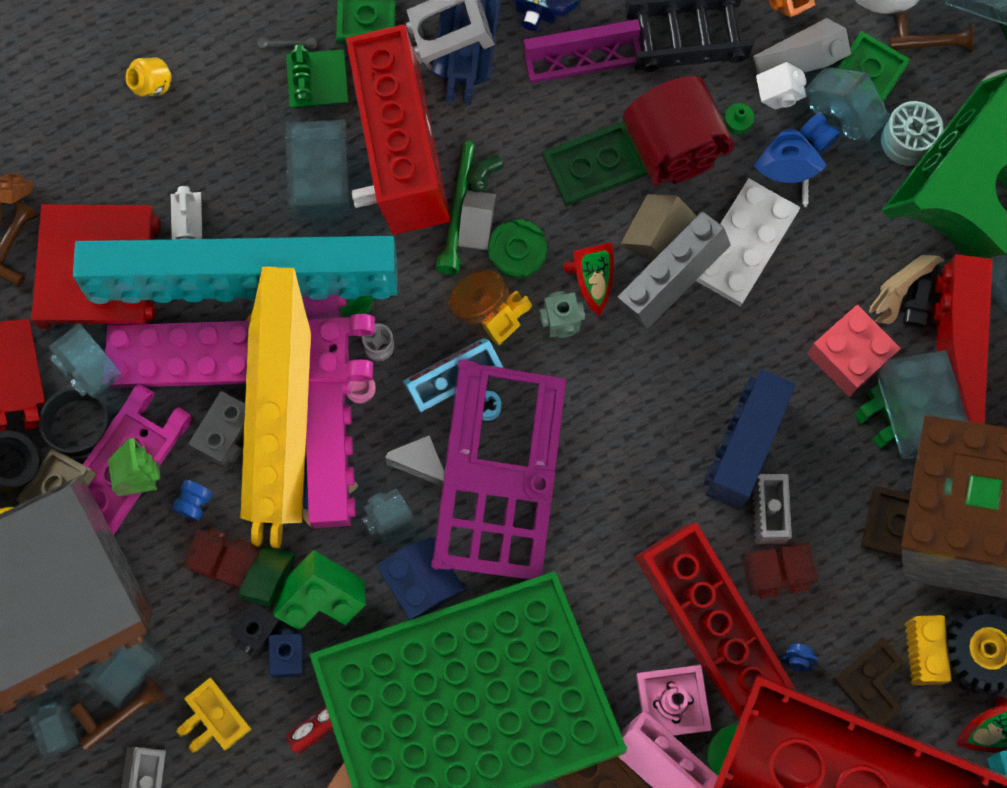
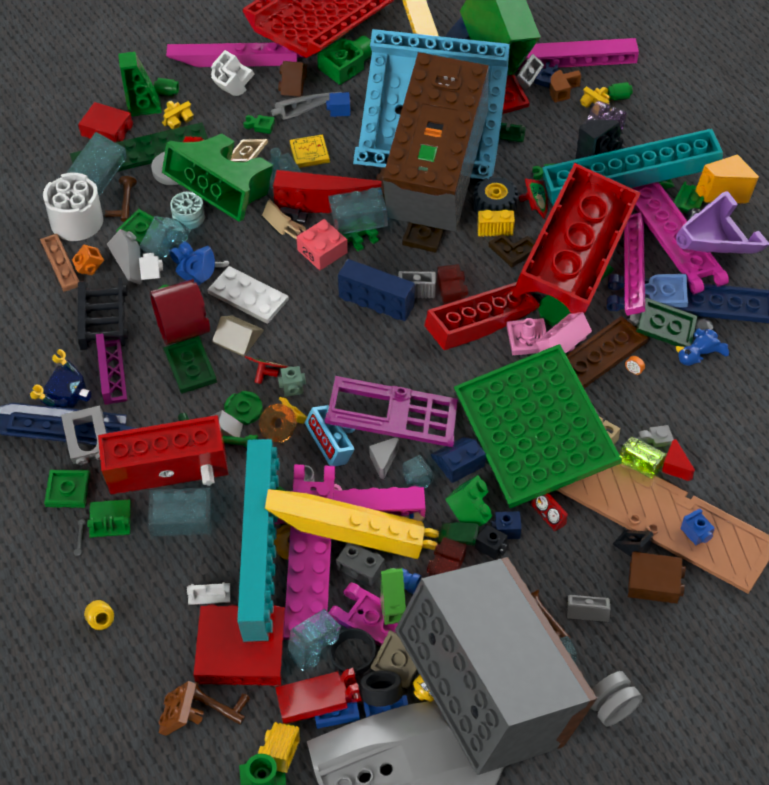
camera: 85 degrees left, 20 degrees down
(217, 715) = (545, 563): yellow hinge -> none
(674, 270) = (268, 321): dark grey brick -> none
(800, 658) = (501, 278): blue plate -> none

